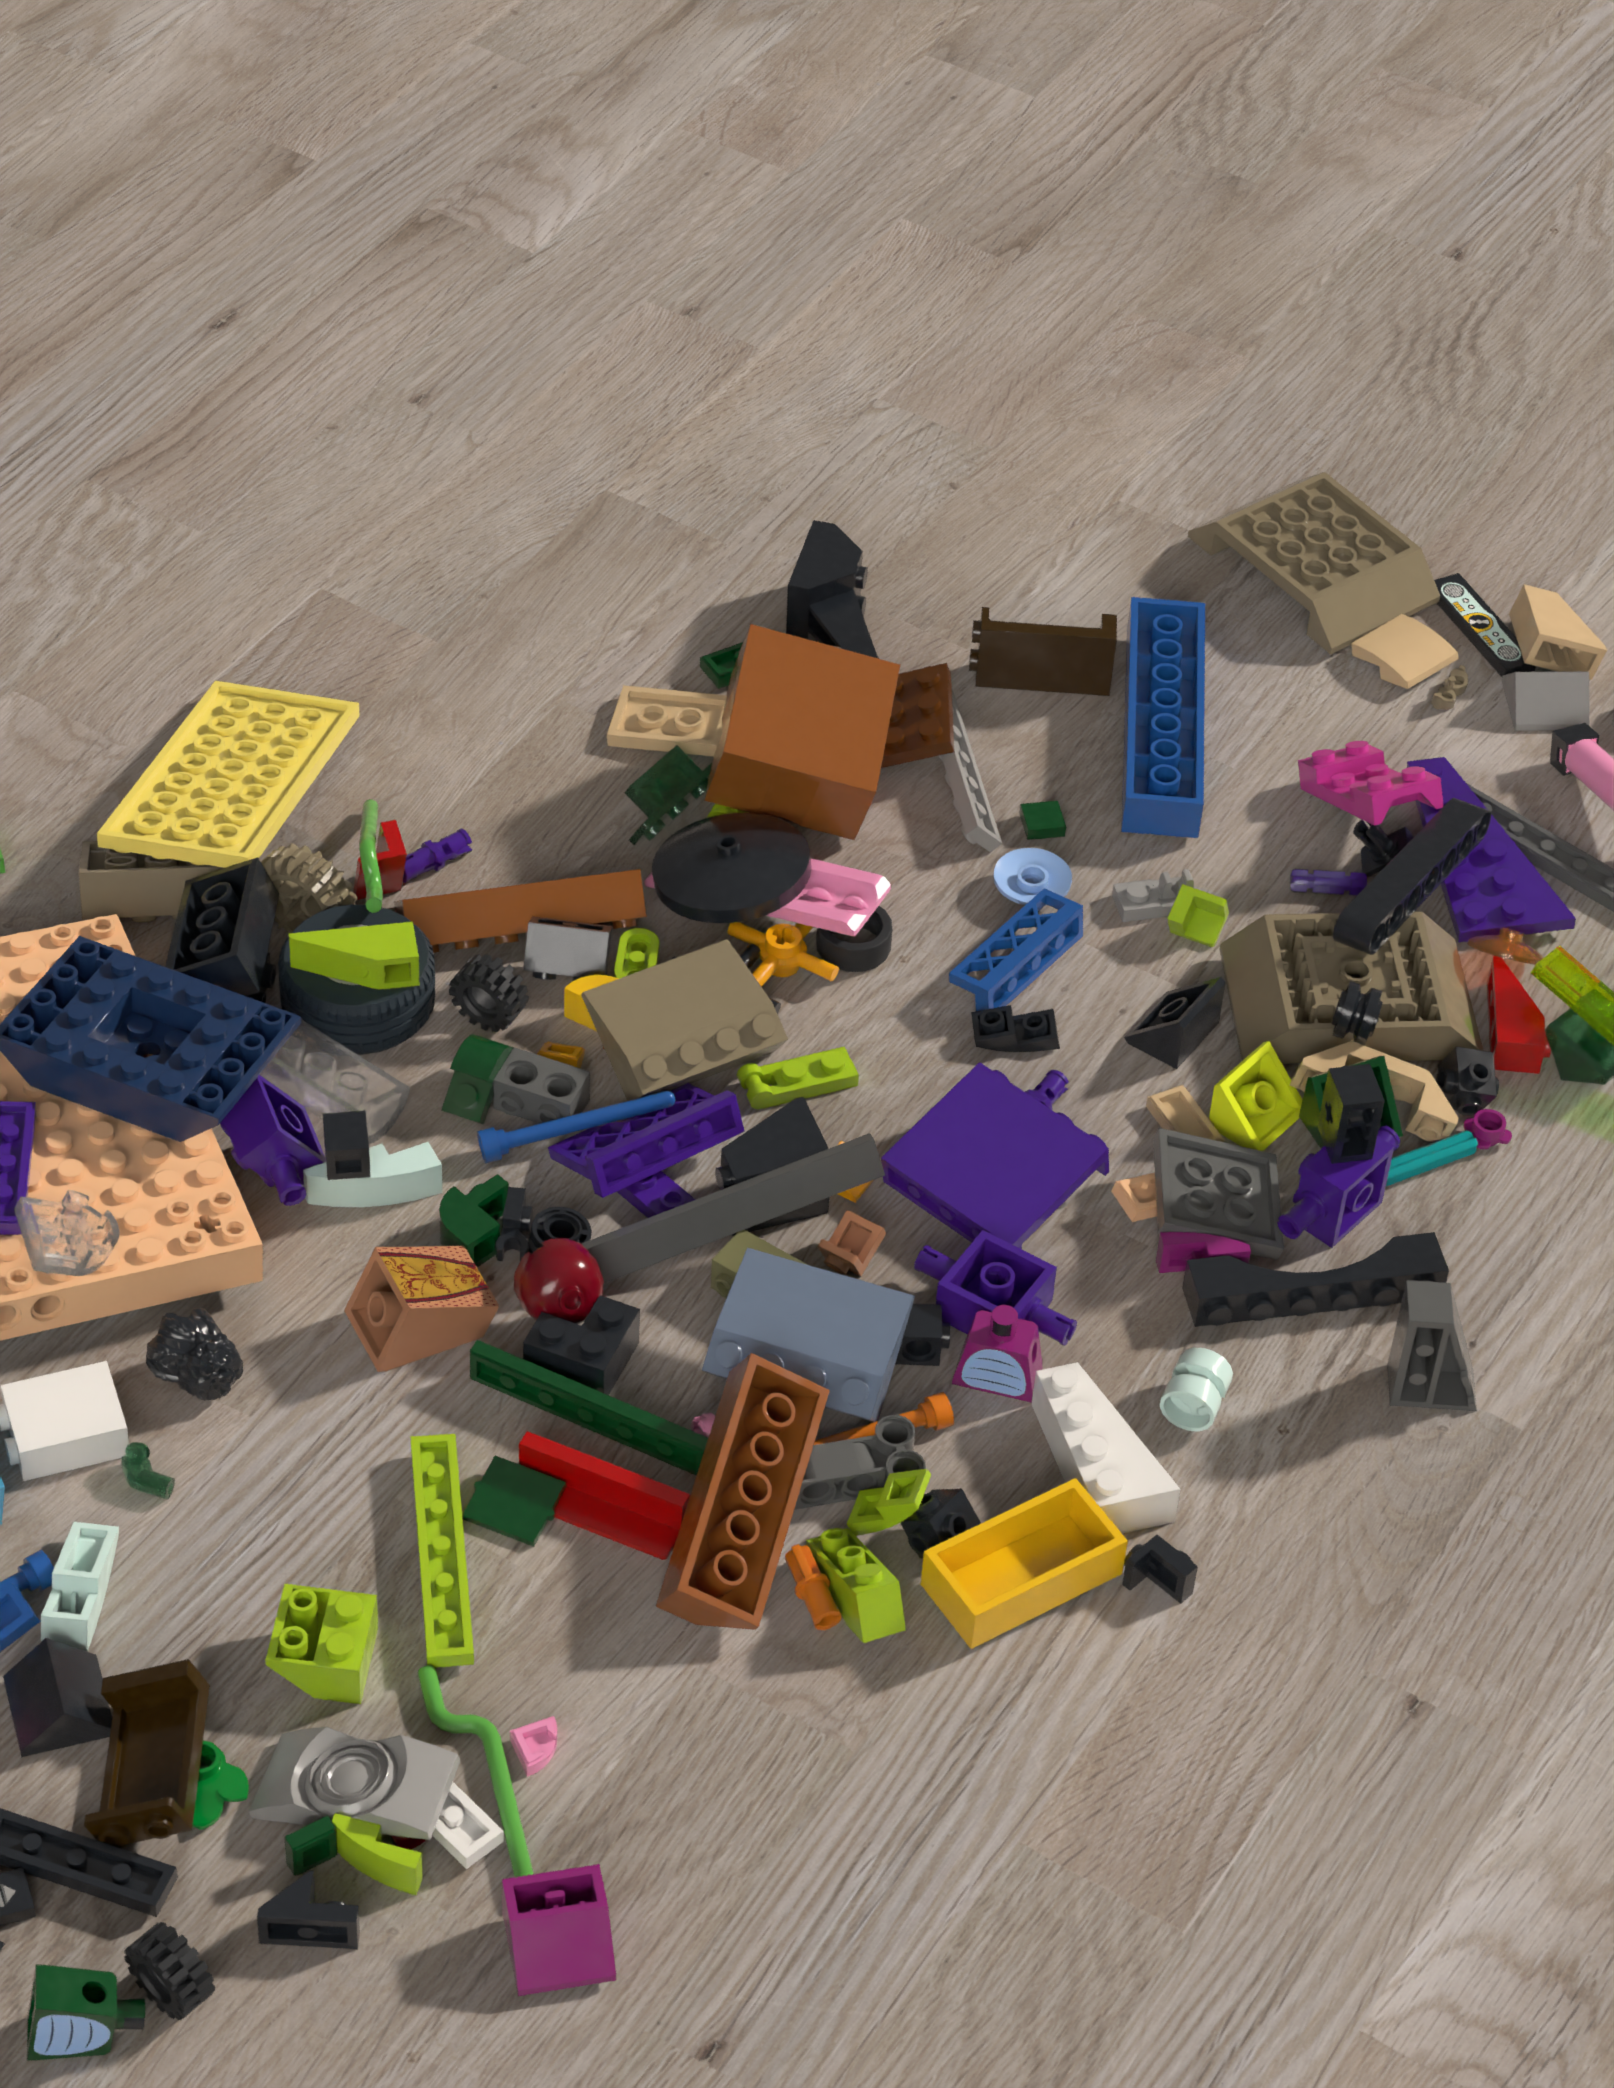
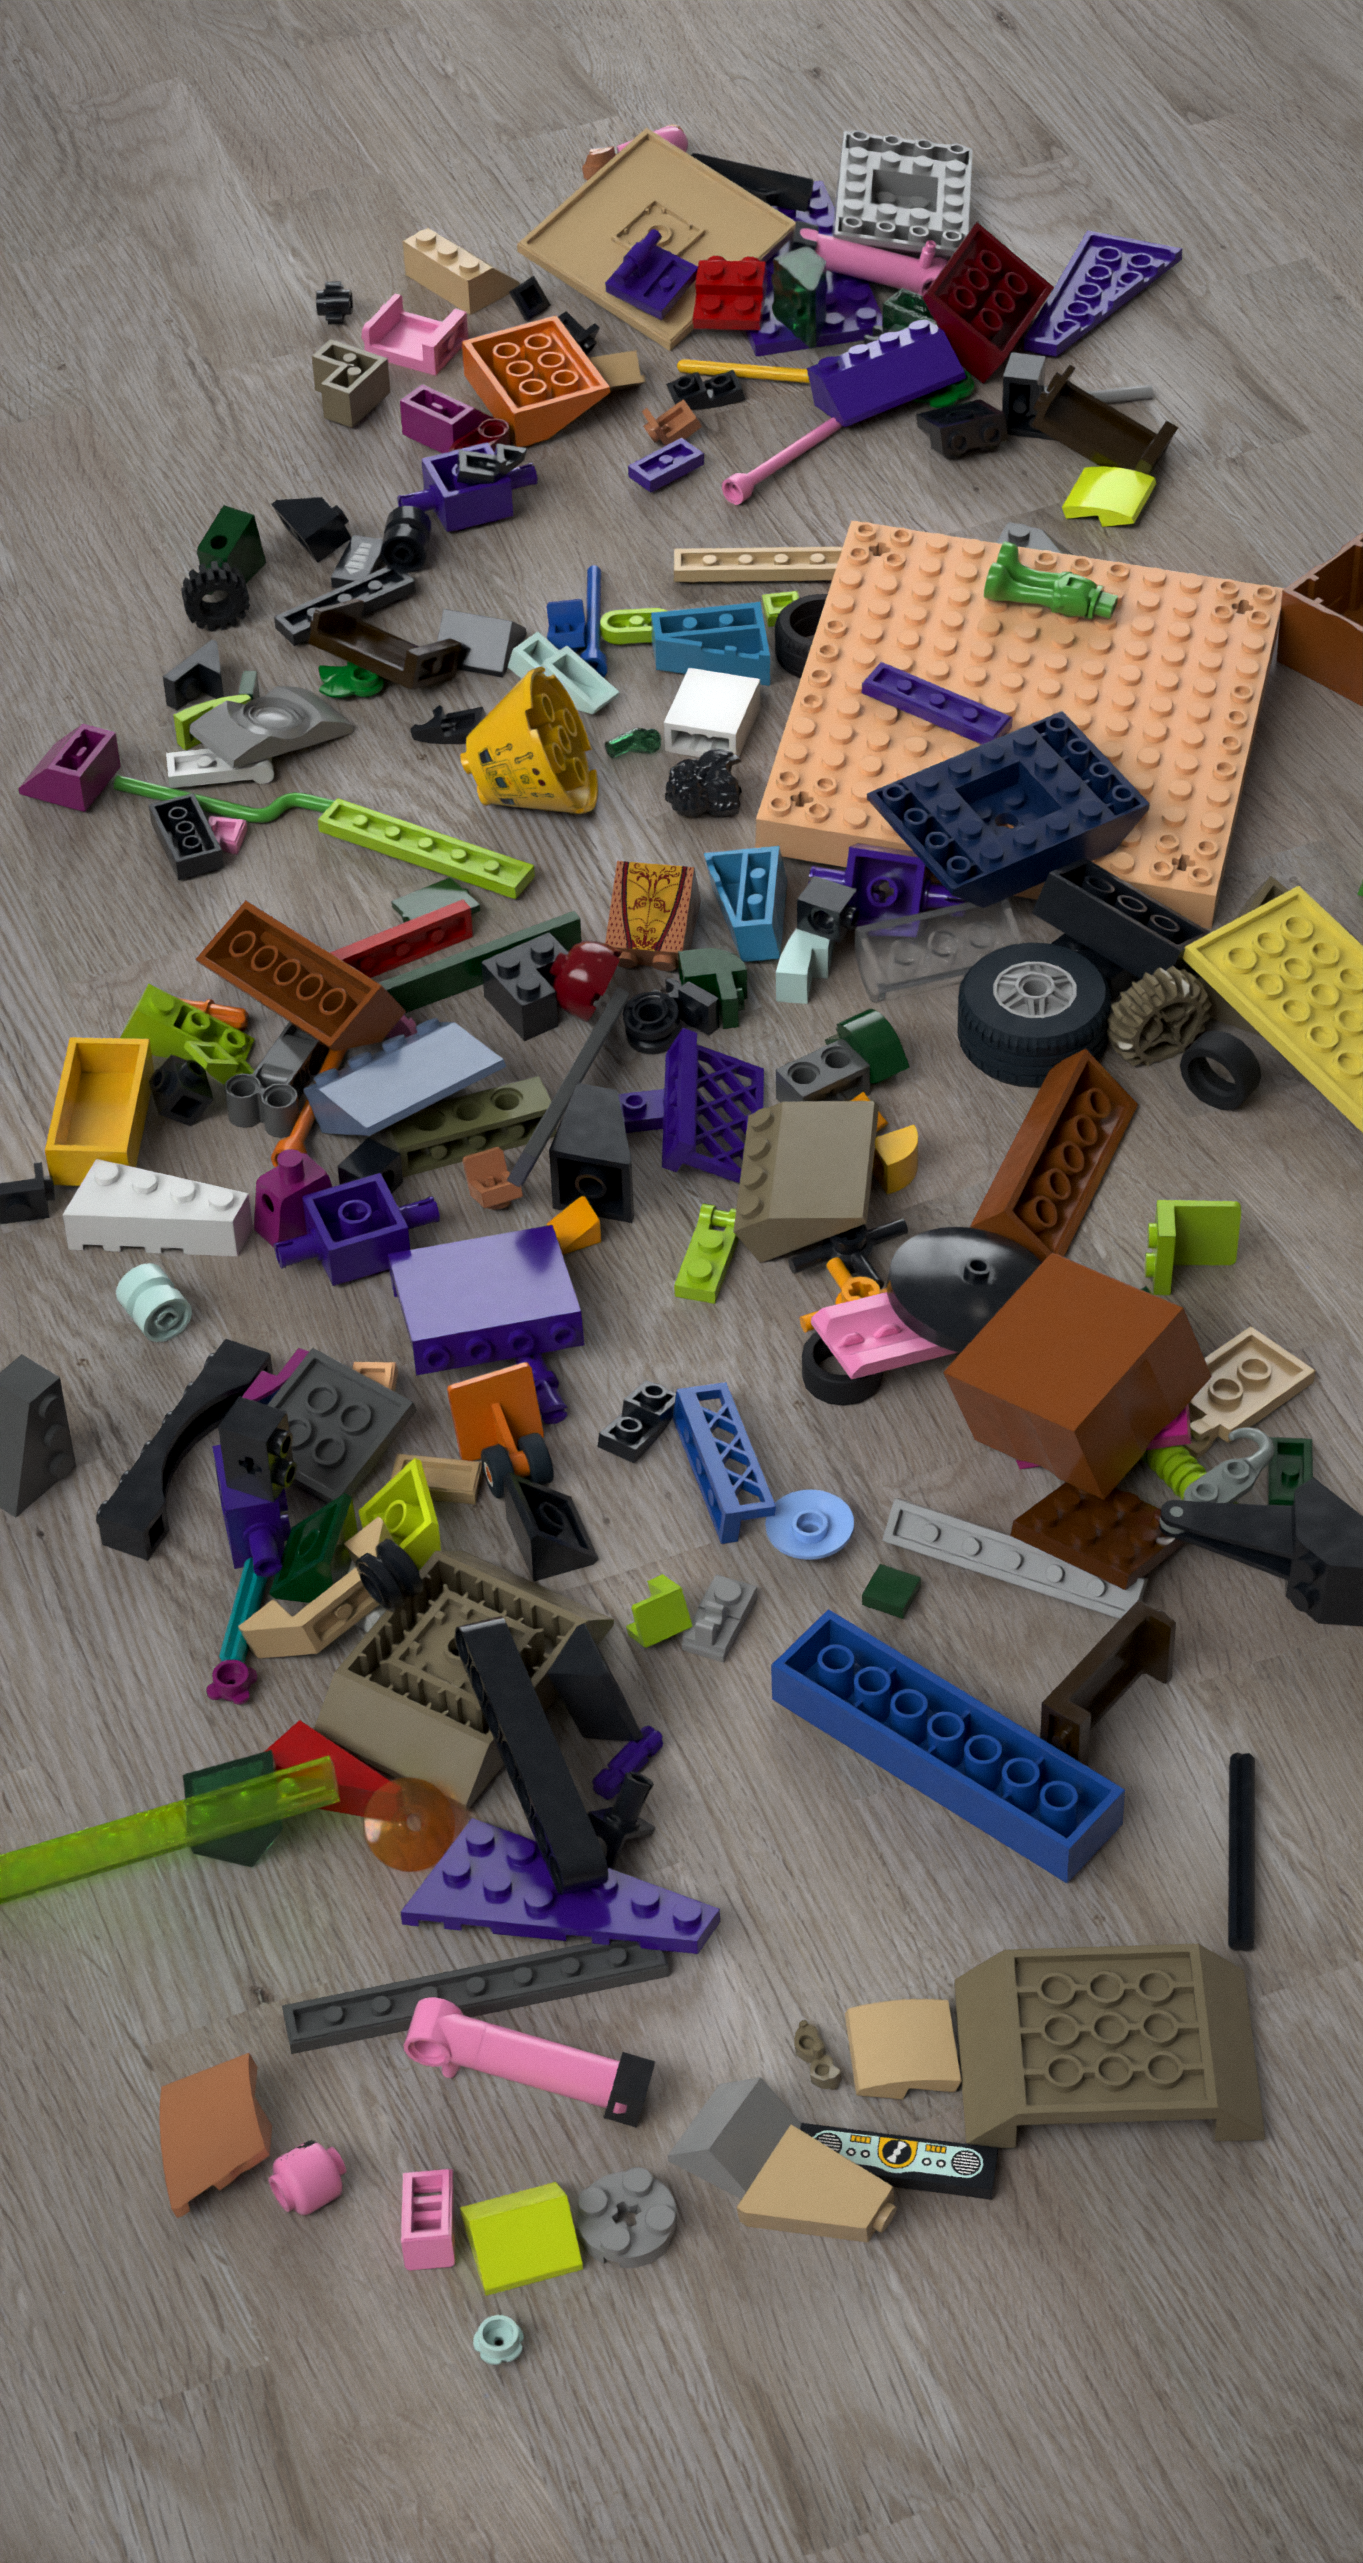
camera: 130 degrees right, 0 degrees up
(66, 1234) = (830, 695): clear slope -> none
(220, 1642) = (448, 728): none -> black slope
(272, 1486) = (533, 750): none -> yellow cone
(324, 1641) = (395, 755): lime slope -> none
(335, 1239) = (751, 897): none -> dark azure wedge
(339, 835) = (1233, 1056): none -> black tyre
(364, 955) = (1007, 973): lime slope -> none
(369, 857) = (1179, 1055): bright green piece -> none
(391, 861) = (1161, 1079): red panel -> none
(434, 854) = (1172, 1145): dark purple pin -> none
(488, 992) = (934, 1087): black tyre -> none
(497, 1143) = (788, 1034): blue piece -> none
(566, 948) = (967, 1156): brick -> none
(569, 788) = (1190, 1235): none -> lime bracket
(577, 1763) = (186, 836): none -> black piece
(636, 951) = (926, 1206): lime plate -> none
(1092, 569) = (1241, 1852): none -> black axle
(1123, 1078) = (495, 1417): none -> orange plate
(1315, 888) = (592, 1691): none -> black slope
(1363, 783) = (697, 1830): dark pink piece -> none
(1468, 1079) = (277, 1673): black brick -> none

